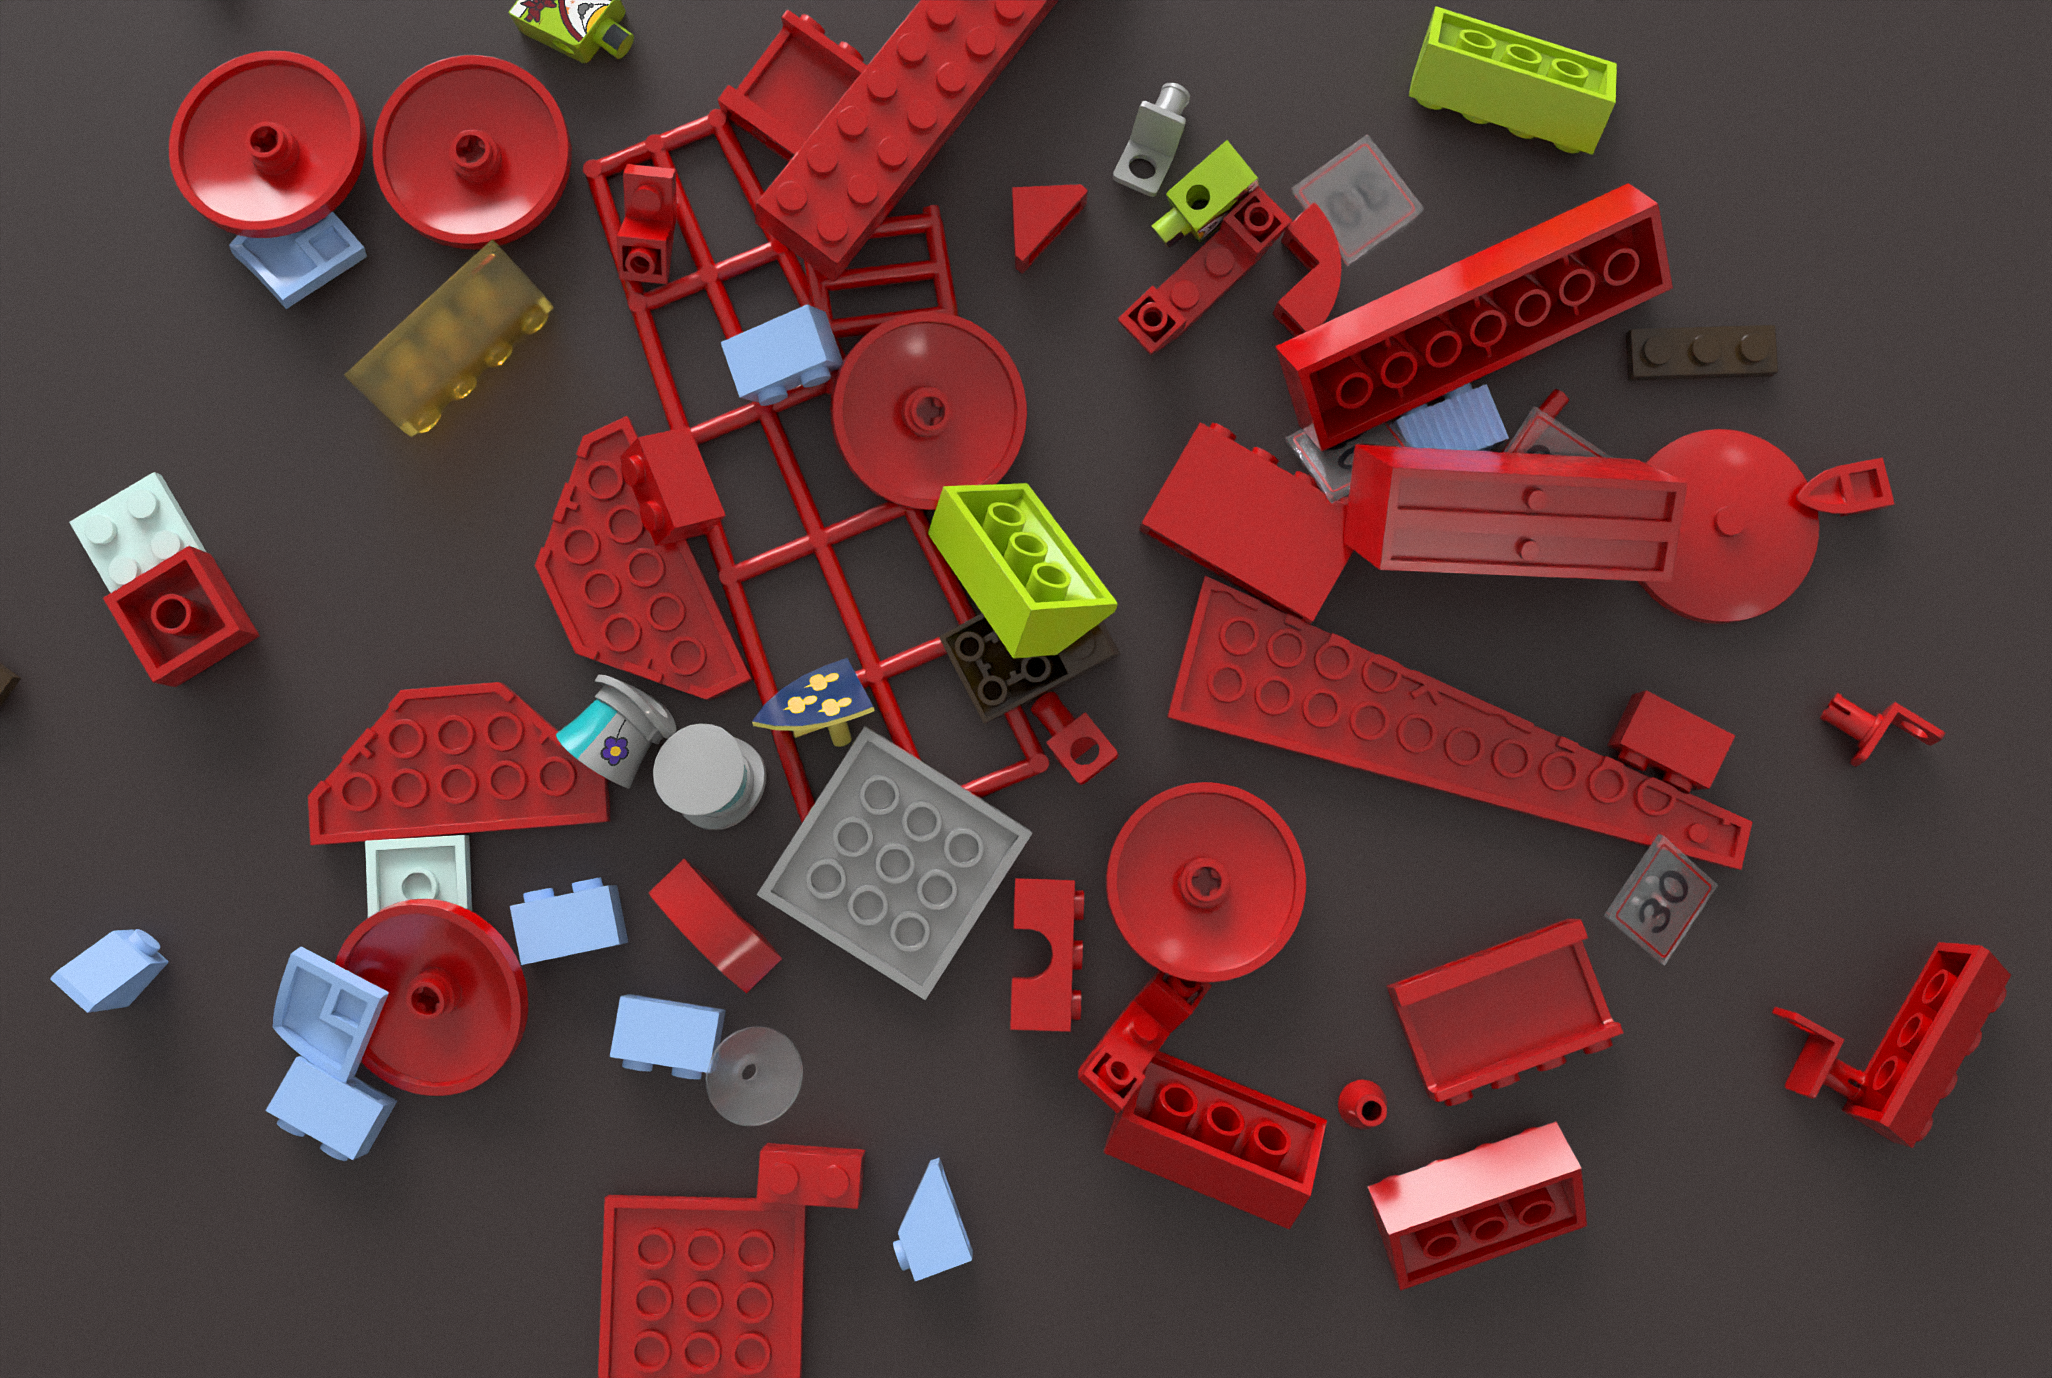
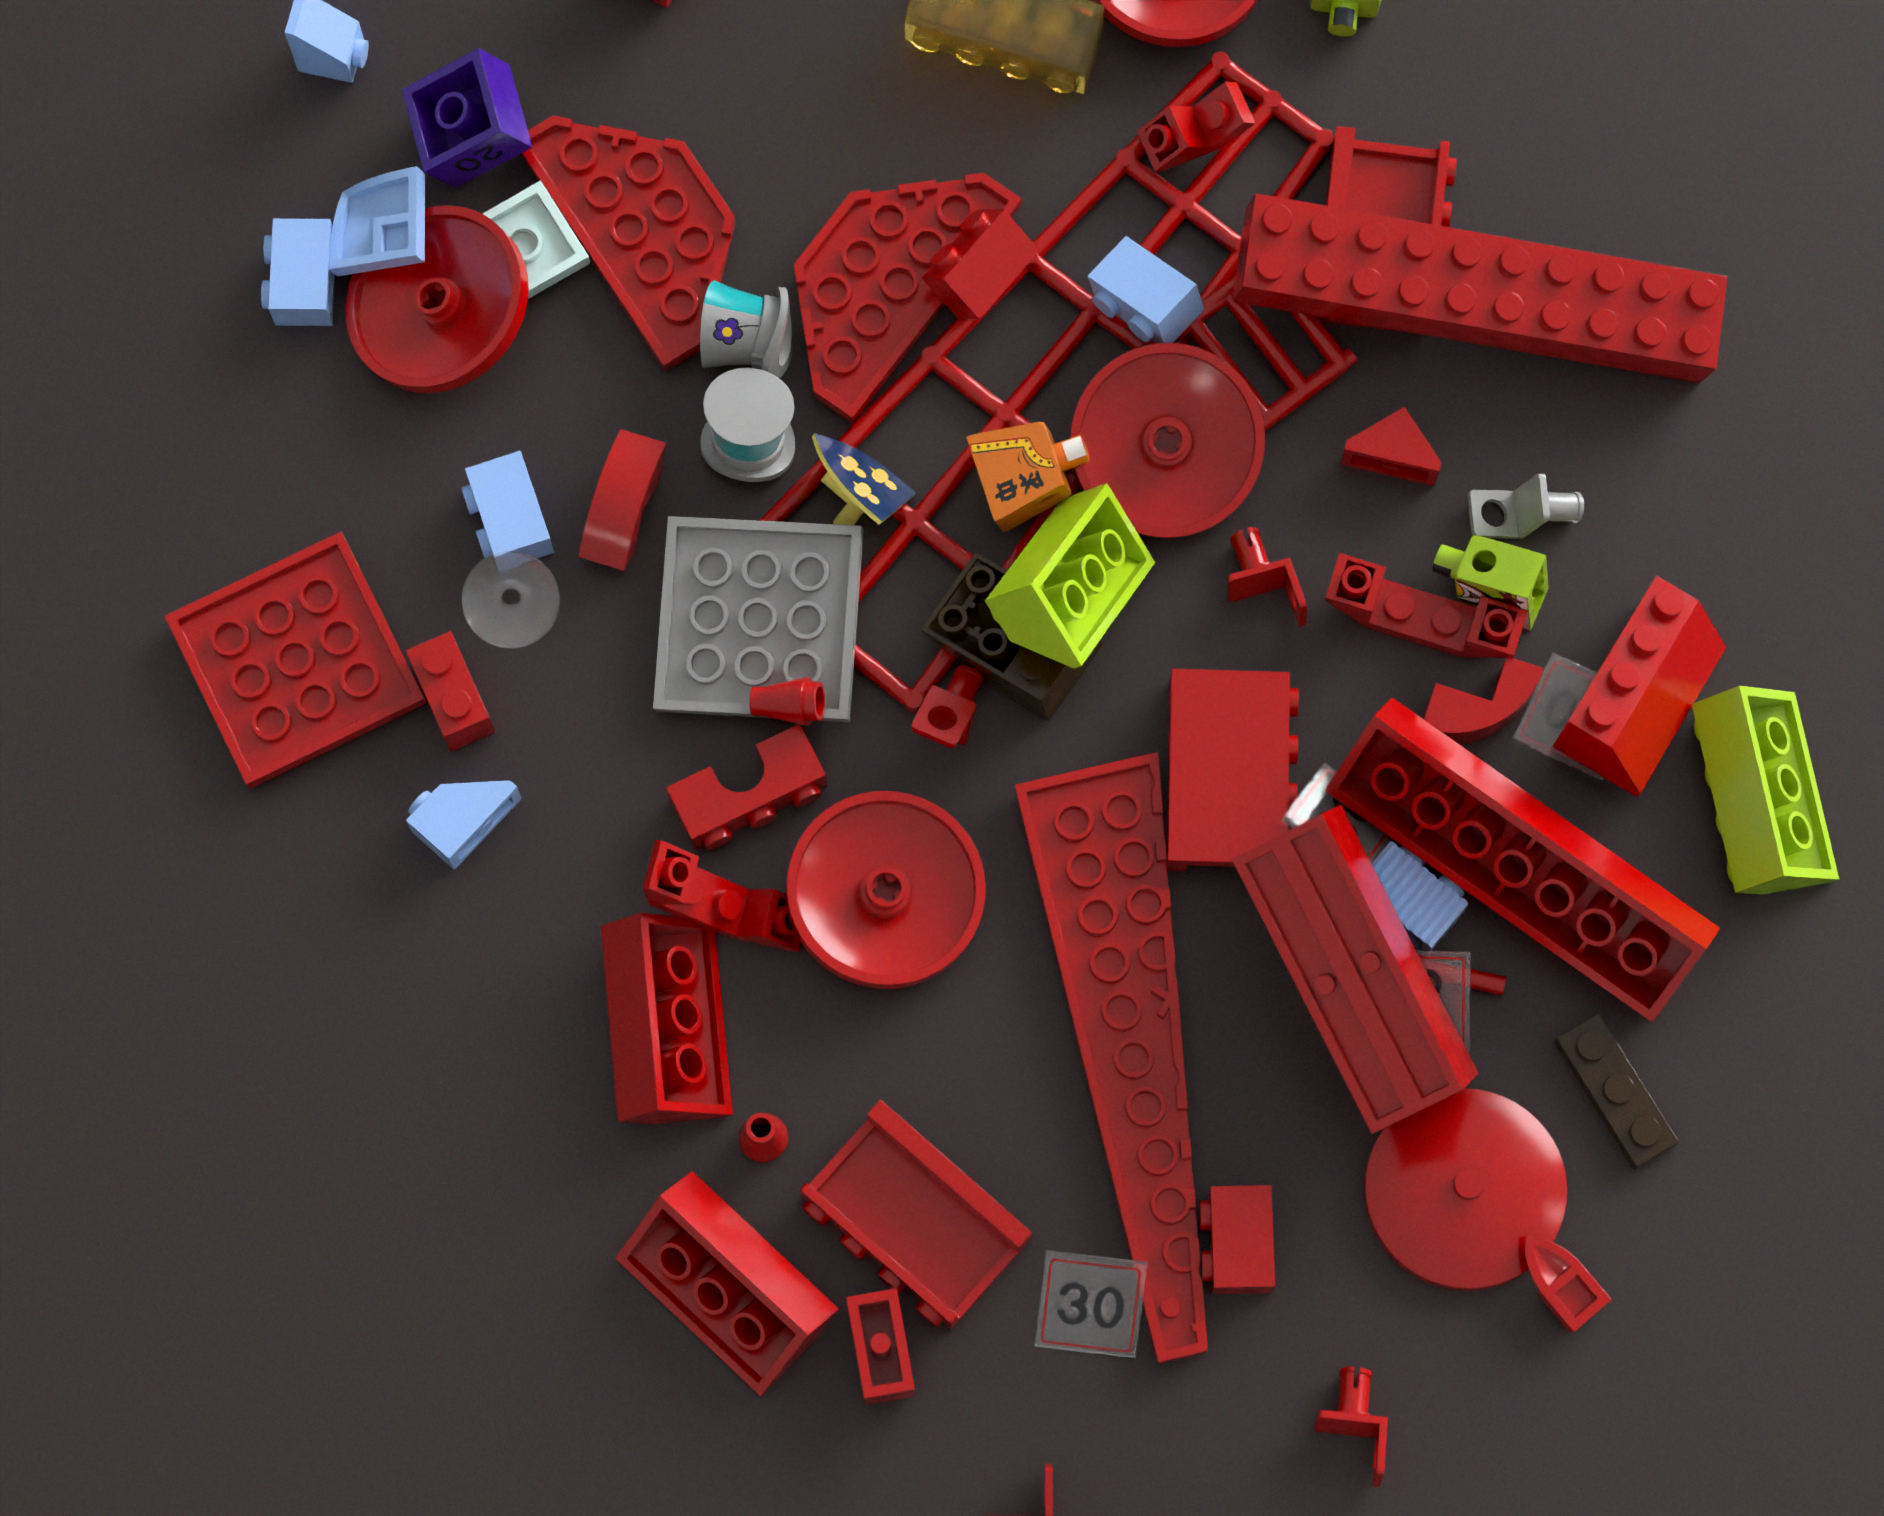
camera: 65 degrees right, 10 degrees down
(267, 879) = (466, 118): none -> dark purple brick
(568, 923) = (559, 380): light blue brick -> none
(888, 552) = (1024, 470): none -> orange torso
(993, 876) = (789, 701): none -> red cone
(1090, 398) = (1261, 576): none -> red bracket
(1372, 130) = (1643, 688): none -> red slope
(1610, 1104) = (881, 1346): none -> red brick

